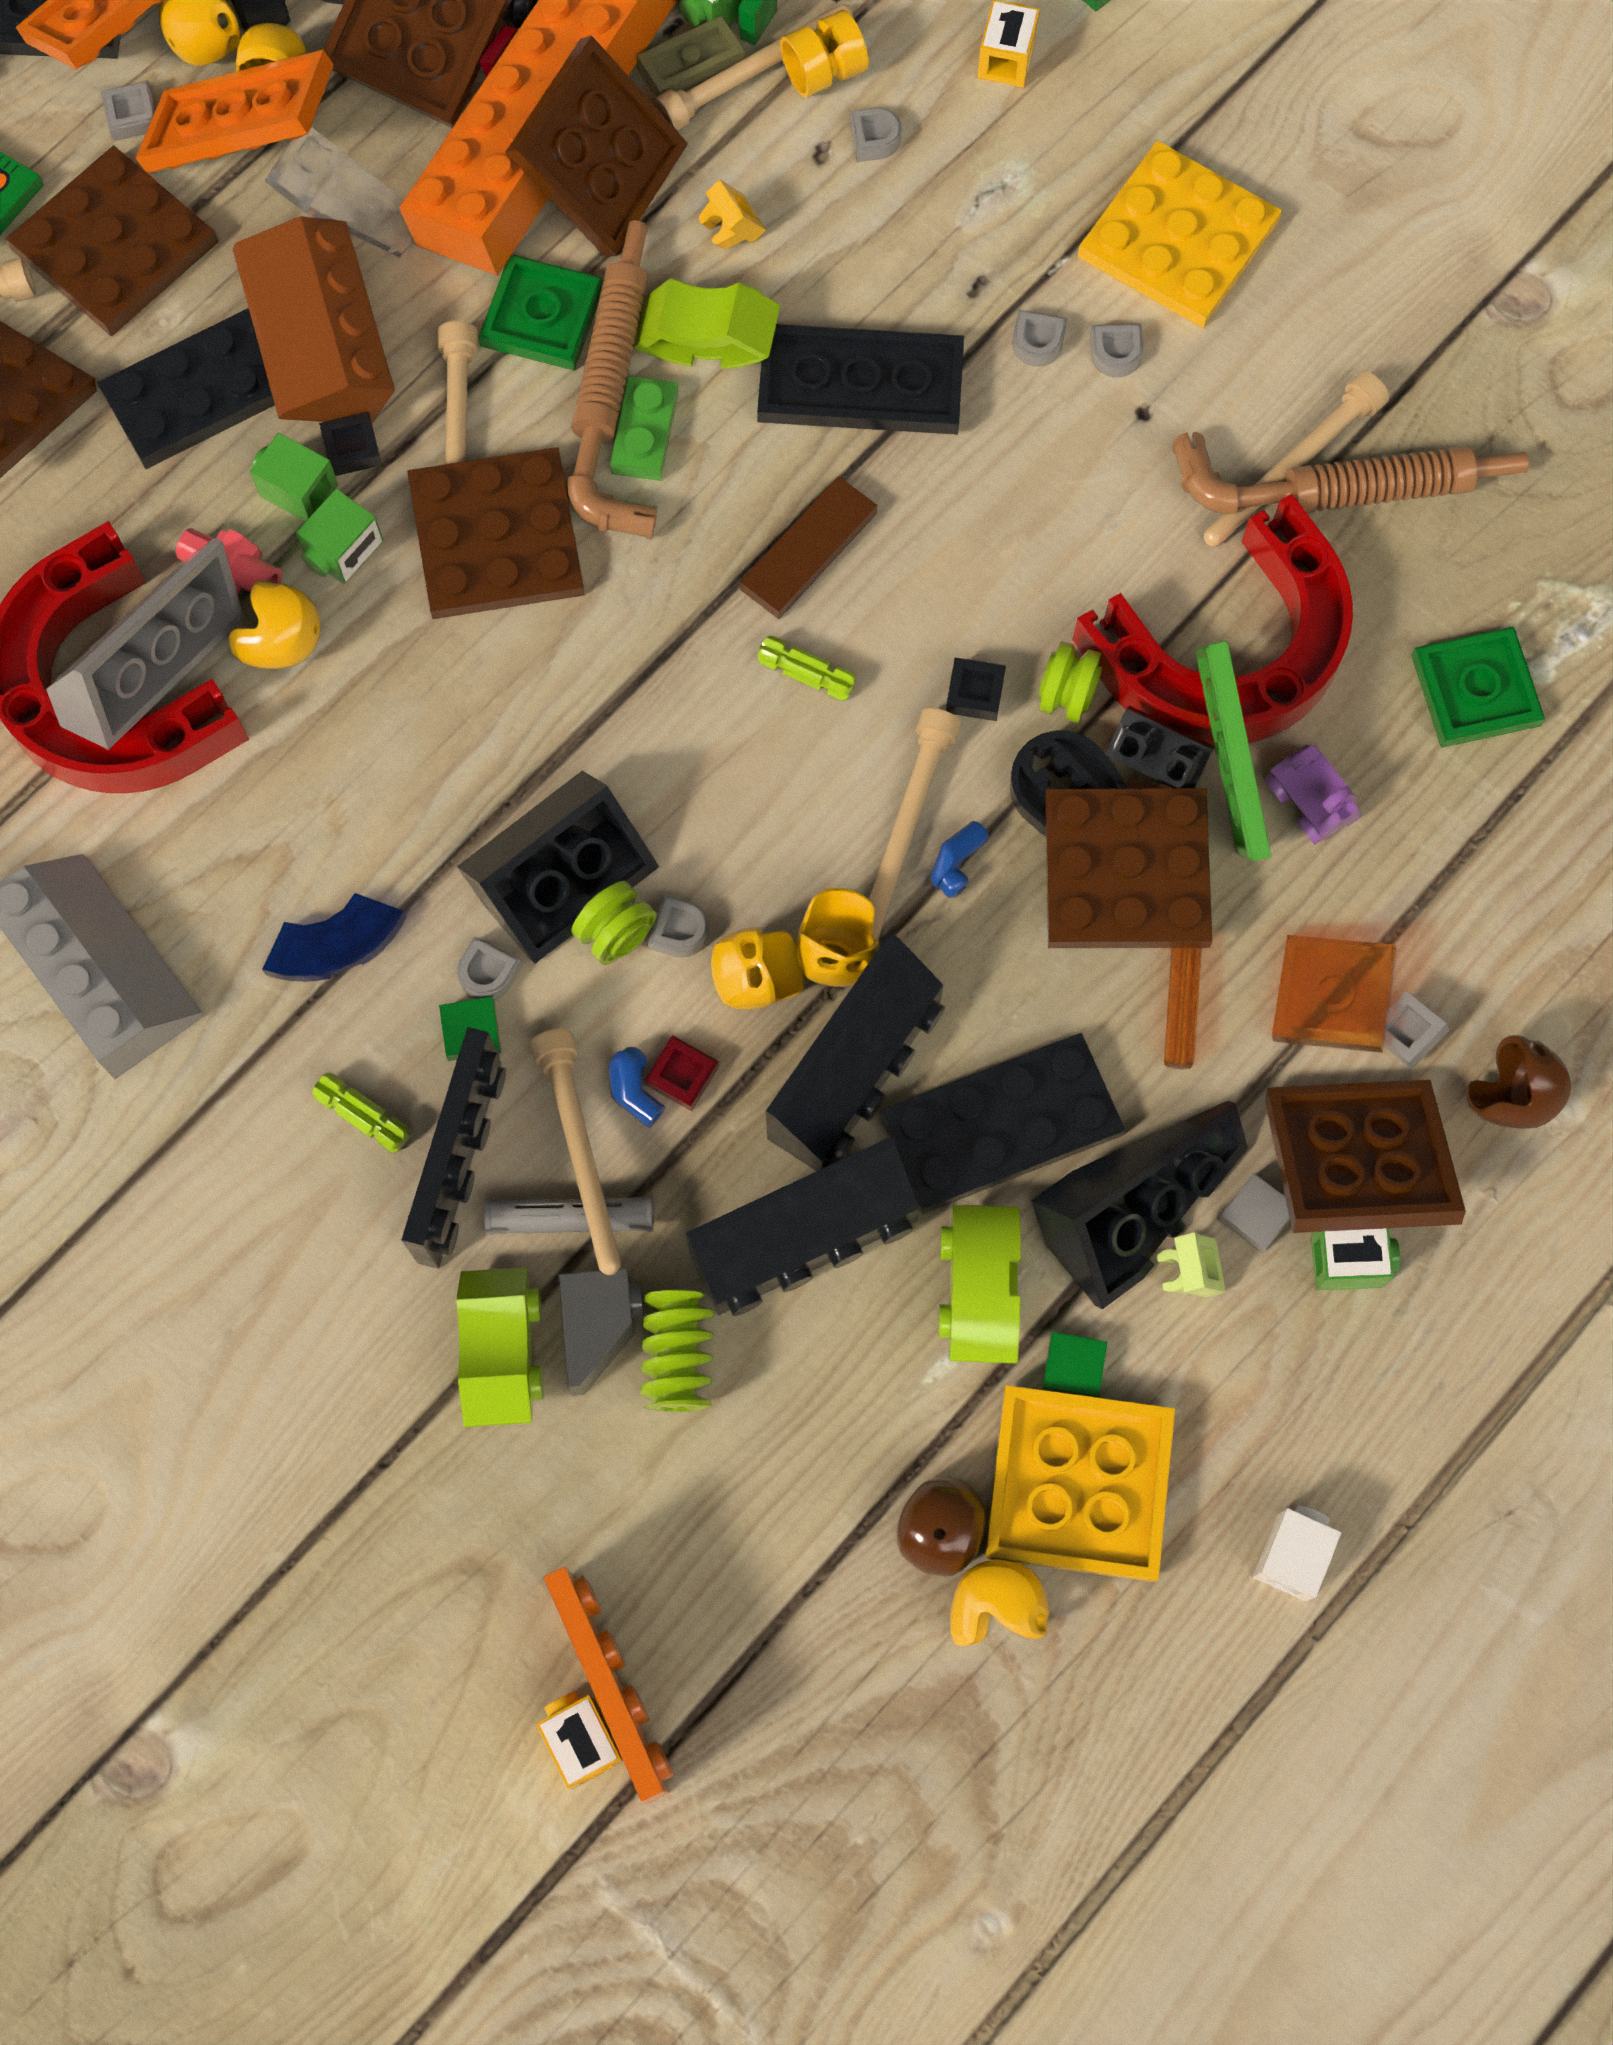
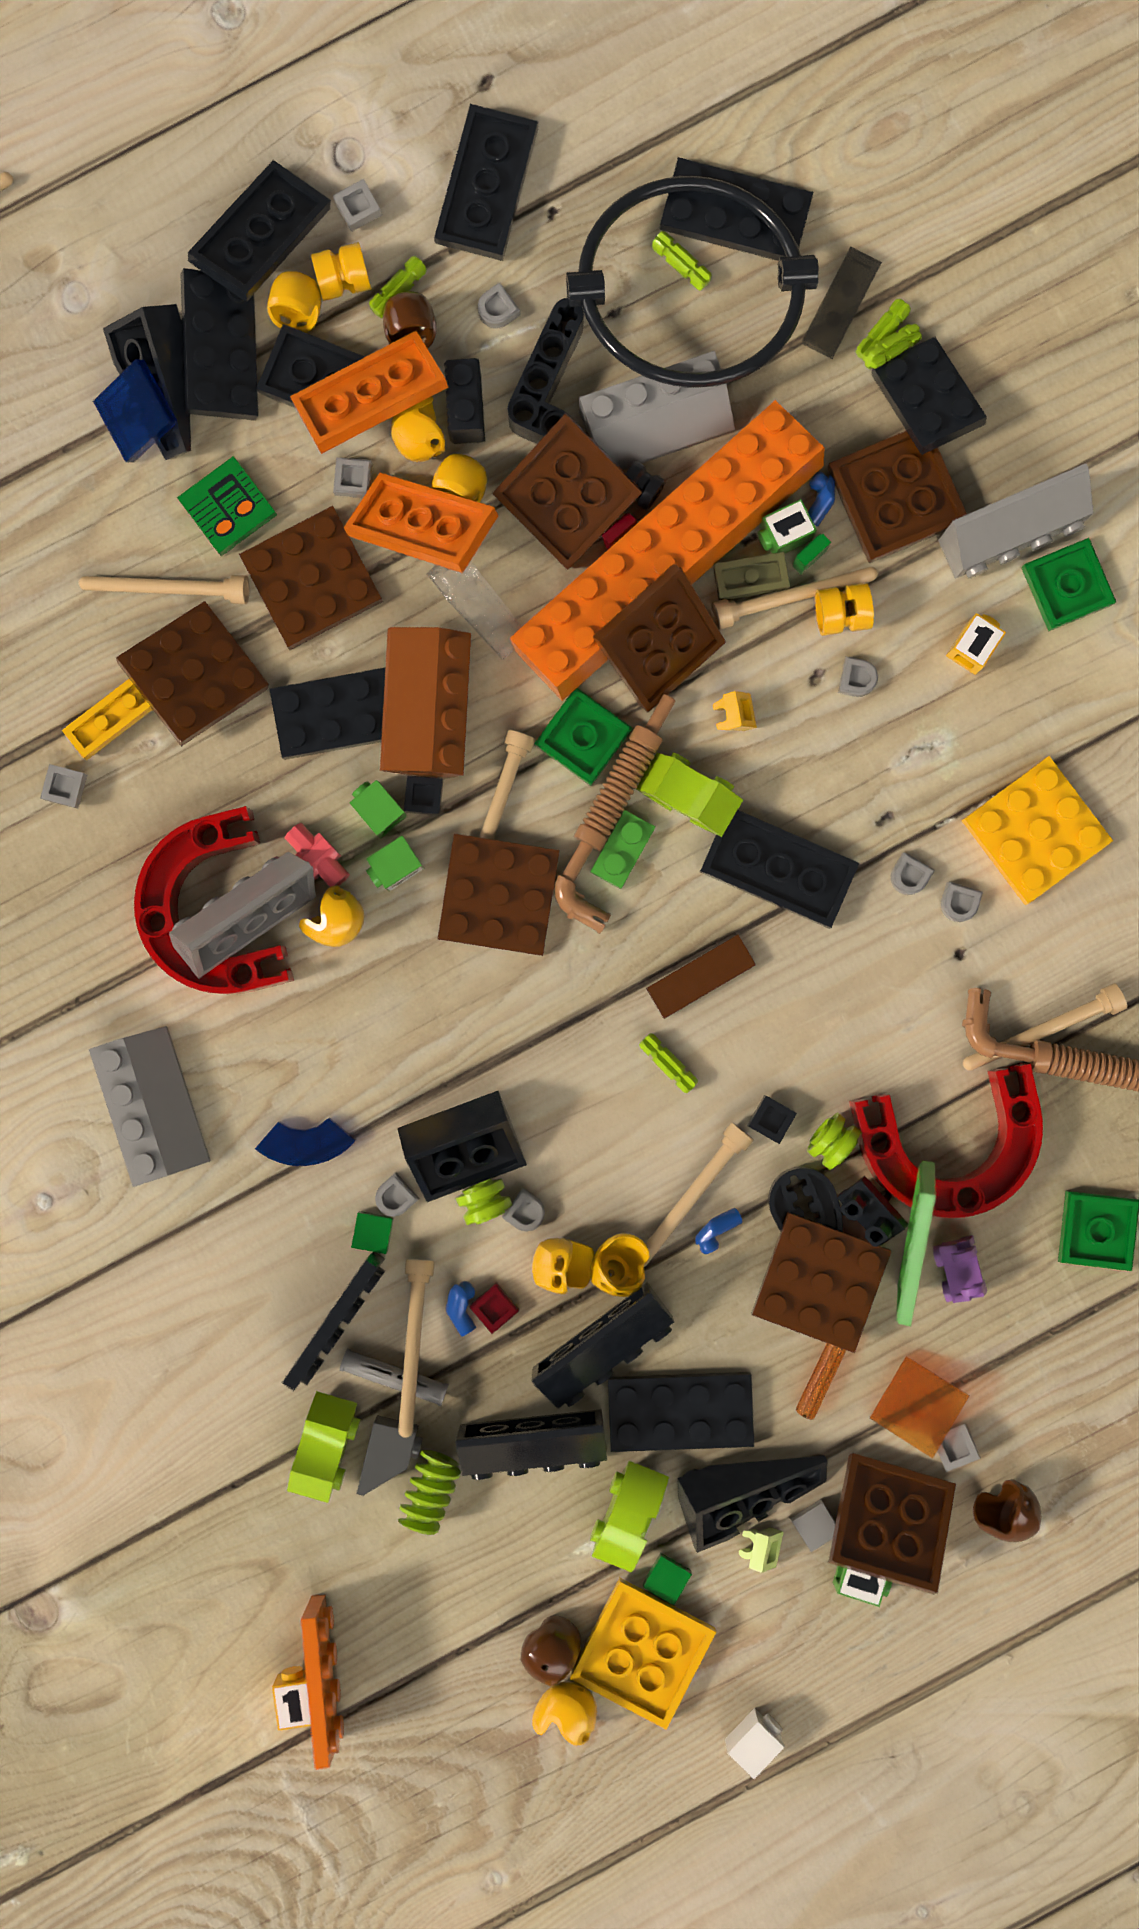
camera: 20 degrees right, 15 degrees up
(361, 1112) = (287, 1263): lime axle -> none

